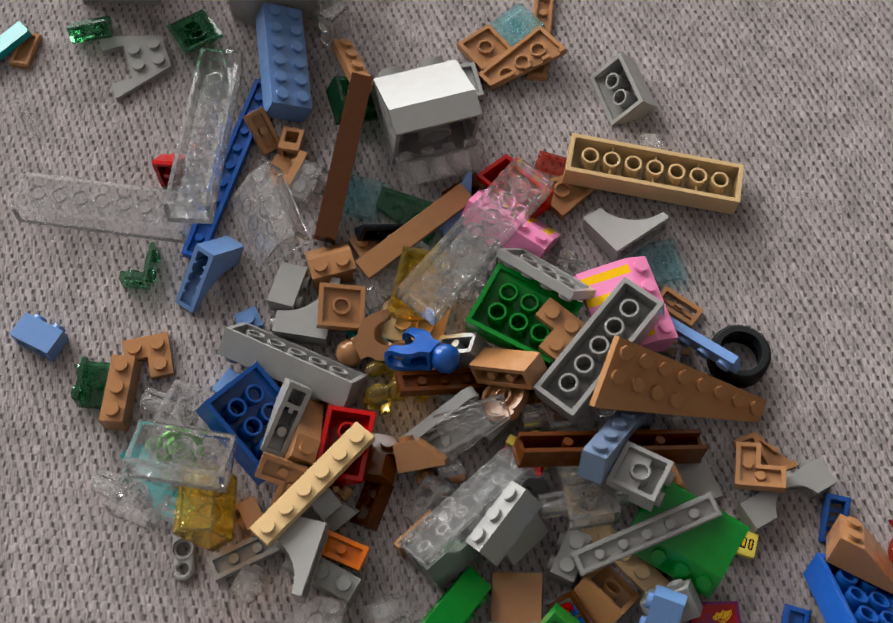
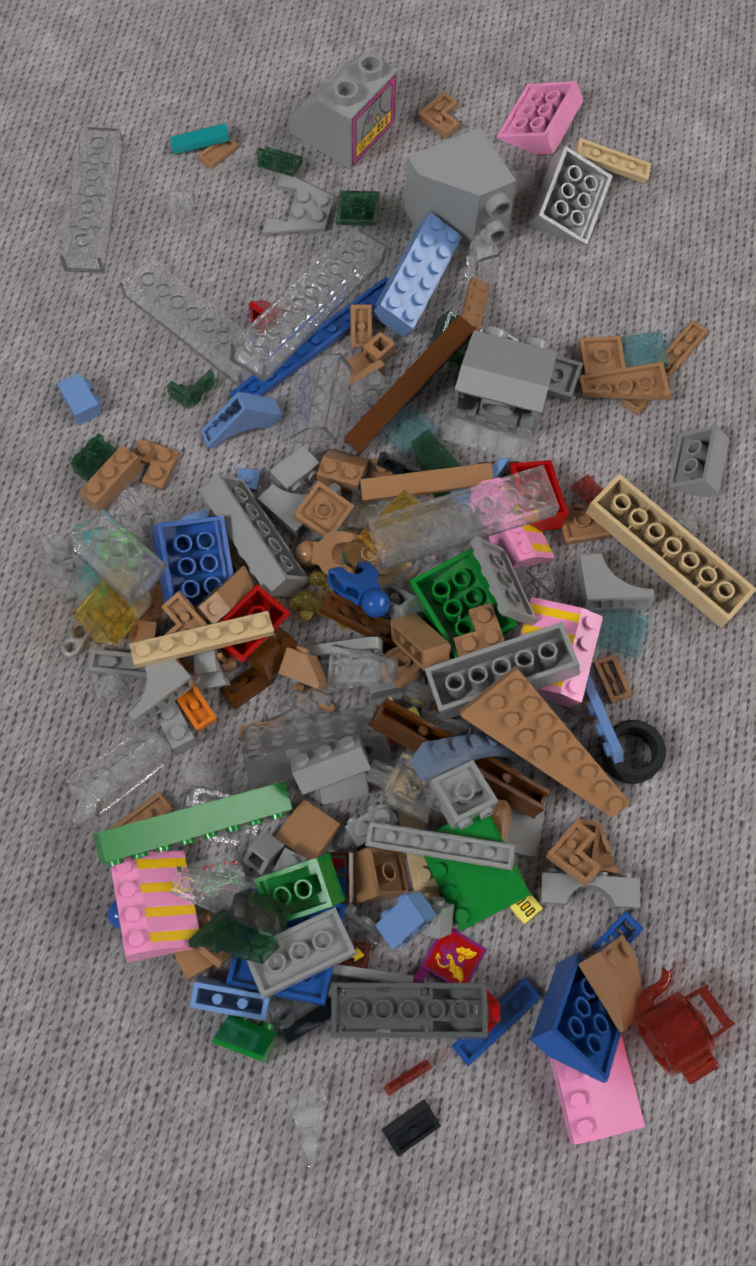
camera: 30 degrees right, 5 degrees up
(285, 417) = (216, 574): light grey slope -> none

